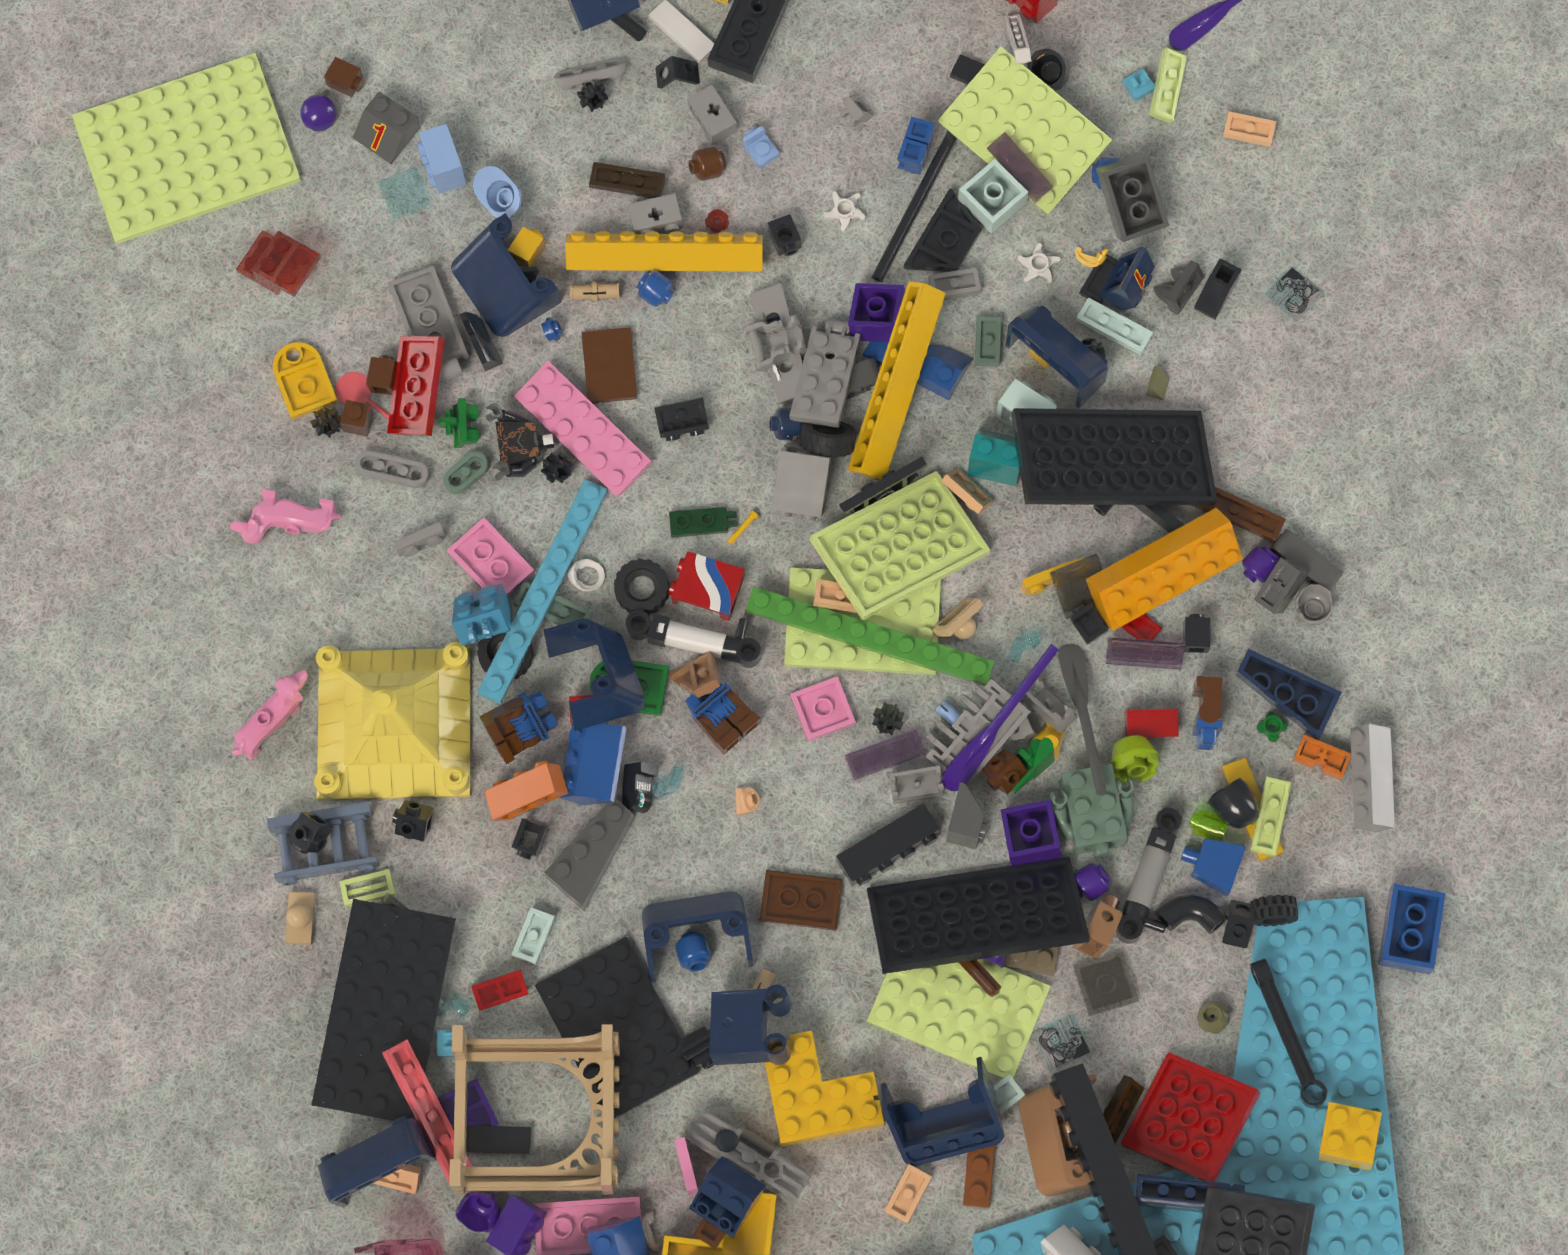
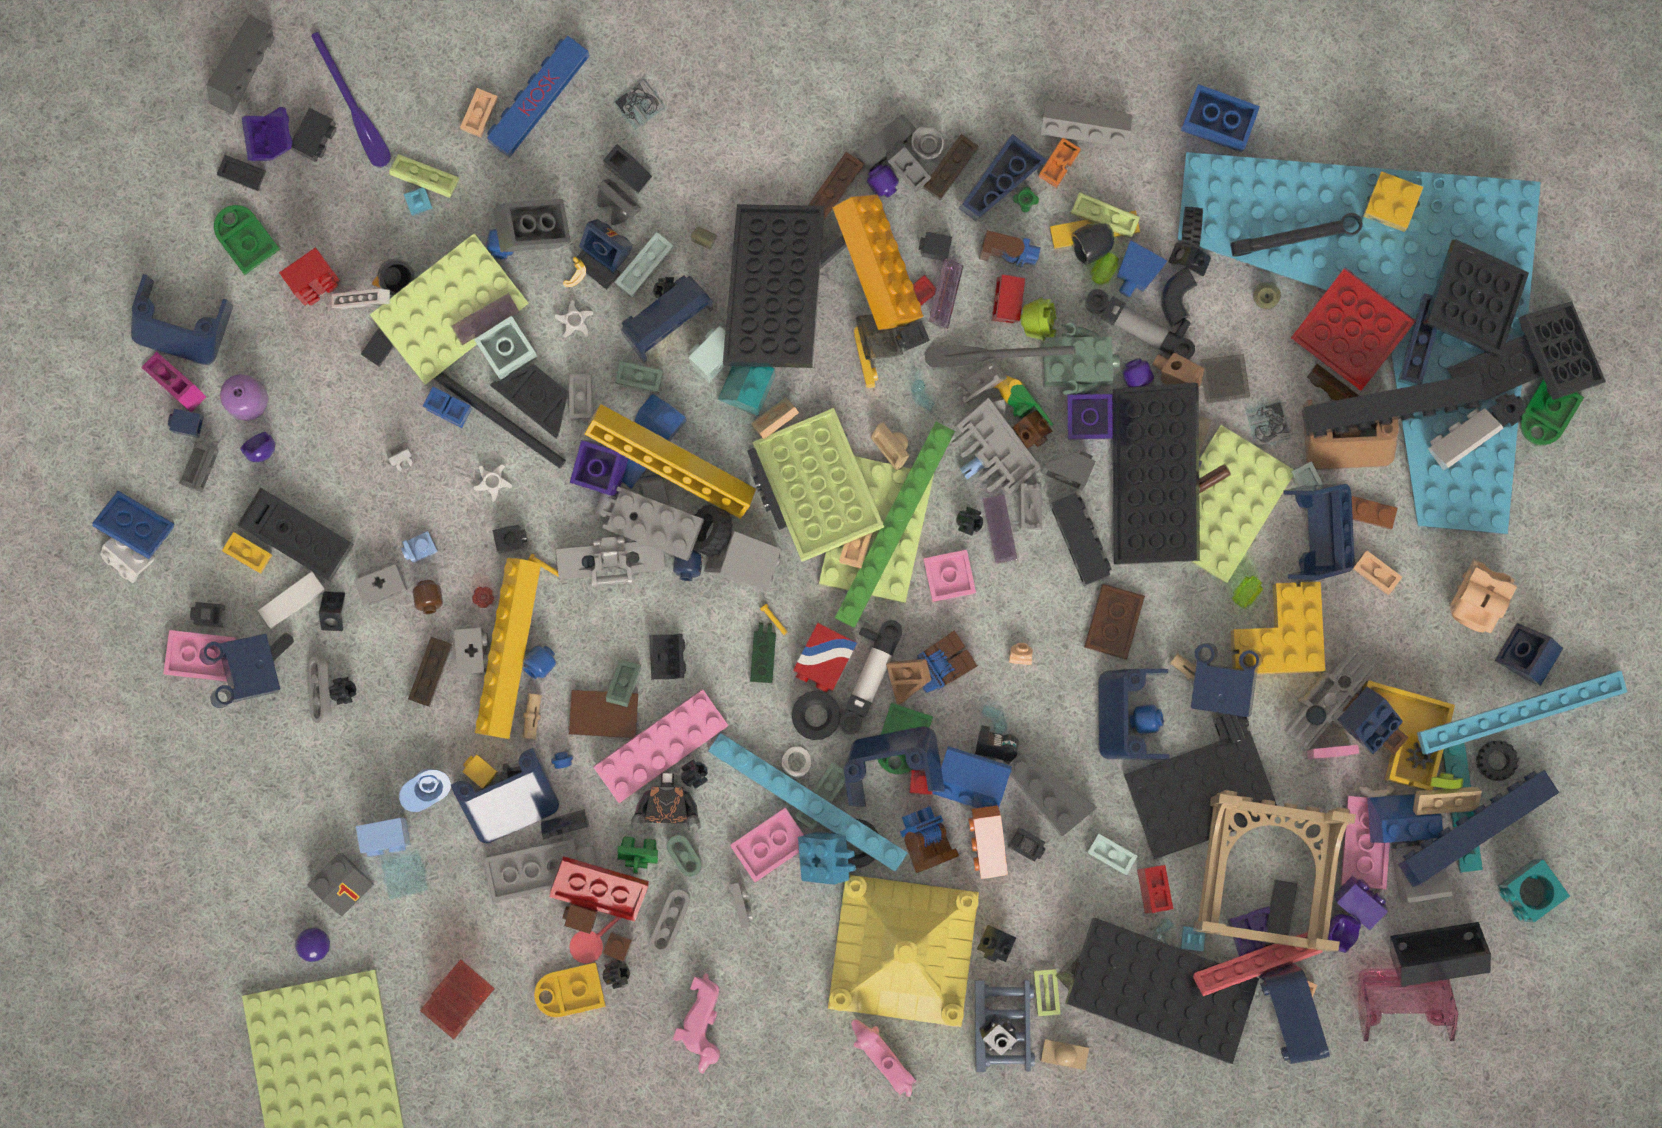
camera: 85 degrees left, 10 degrees up
(344, 77) = (282, 915): reddish brown brick -> none
(645, 377) = (623, 683): none -> sand green plate
(768, 264) = (554, 571): none -> yellow piece
(860, 1045) = (1247, 591): none -> clear neon green brick
(973, 754) = (1018, 457): dark purple piece -> none
(1280, 185) = (538, 96): none -> blue brick
(1292, 637) = (951, 167): none -> dark brown plate

